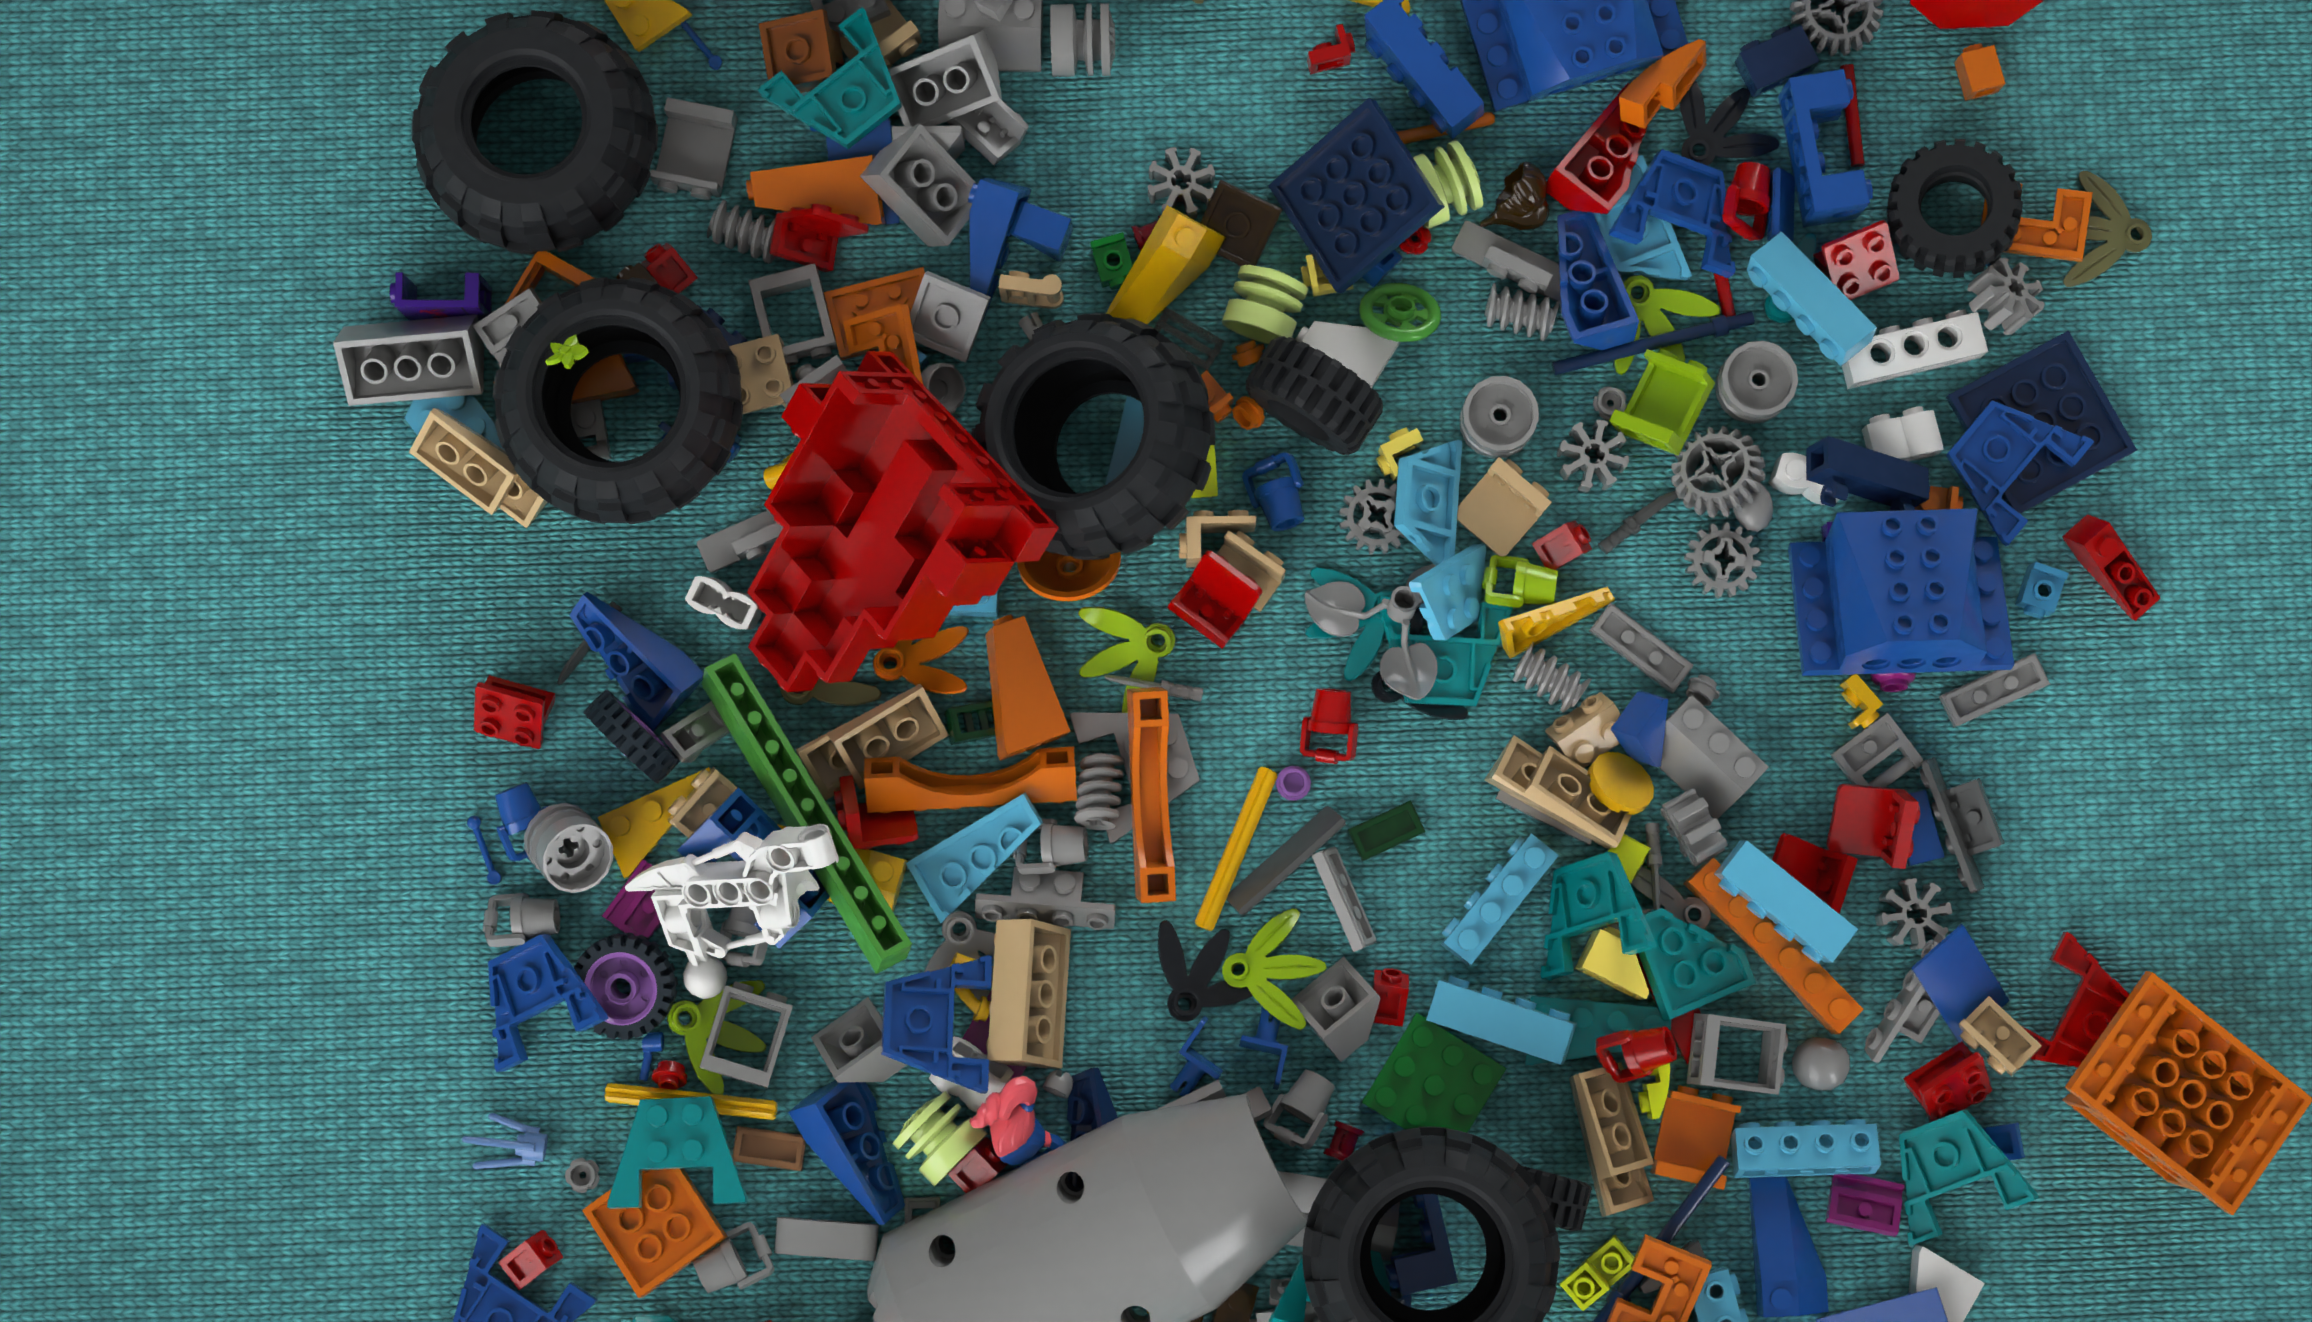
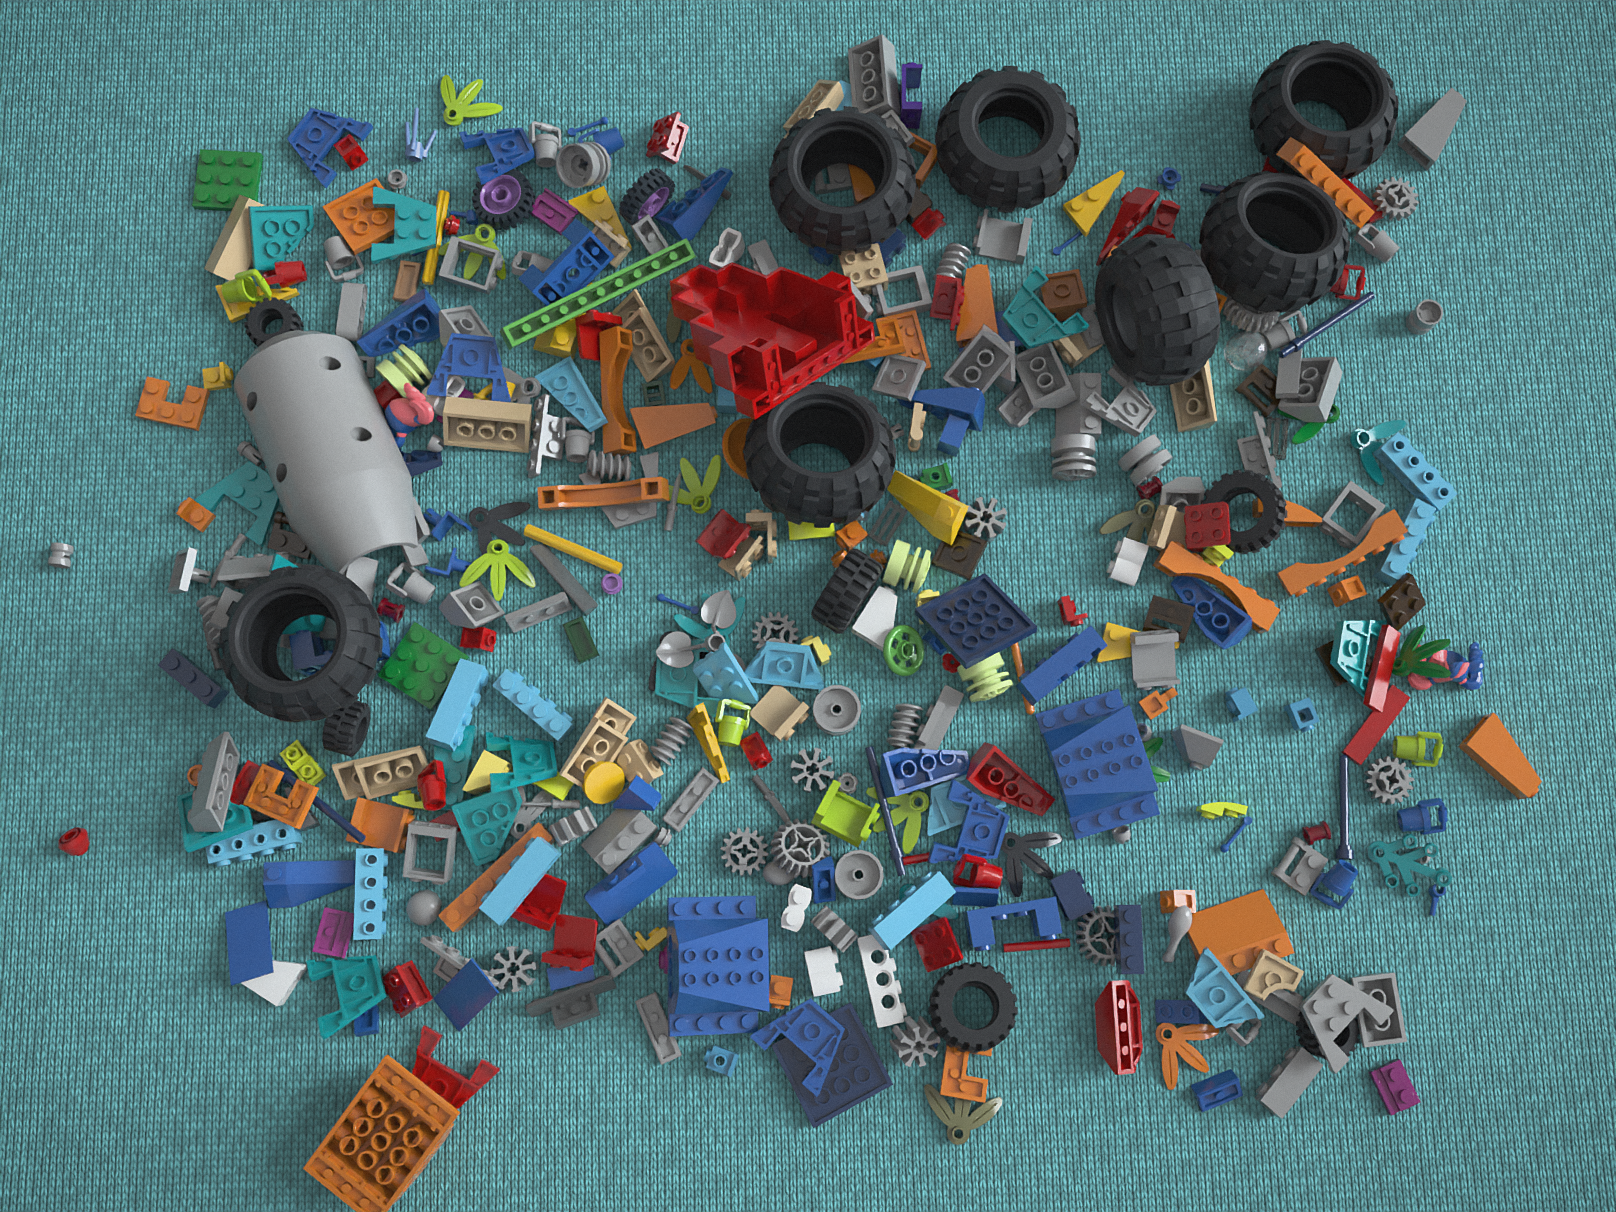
camera: 85 degrees right, 5 degrees down
(432, 1063) = (460, 105): none -> lime plant
(567, 352) = (864, 137): lime plant -> none
(766, 880) = (554, 257): white piece -> none
(945, 385) = (856, 376): light grey hair -> none
(1279, 496) = (787, 576): blue piece -> none
(1330, 715) = (648, 604): red piece -> none
(1333, 650) = (694, 609): none -> blue hinge
(1522, 200) = (975, 729): dark brown hair -> none
(1662, 84) = (1053, 819): orange slope -> none
(1768, 433) = (823, 881): none -> blue slope
(1778, 735) = (630, 883): none -> blue bracket
(1842, 414) = (834, 928): none -> light grey gear
(1865, 473) = (795, 943): dark blue brick -> none
(1979, 71) = (1066, 1030): orange brick -> none
(1998, 1036) = (431, 1019): tan bracket -> none
(2111, 565) = (737, 1109): red slope -> none

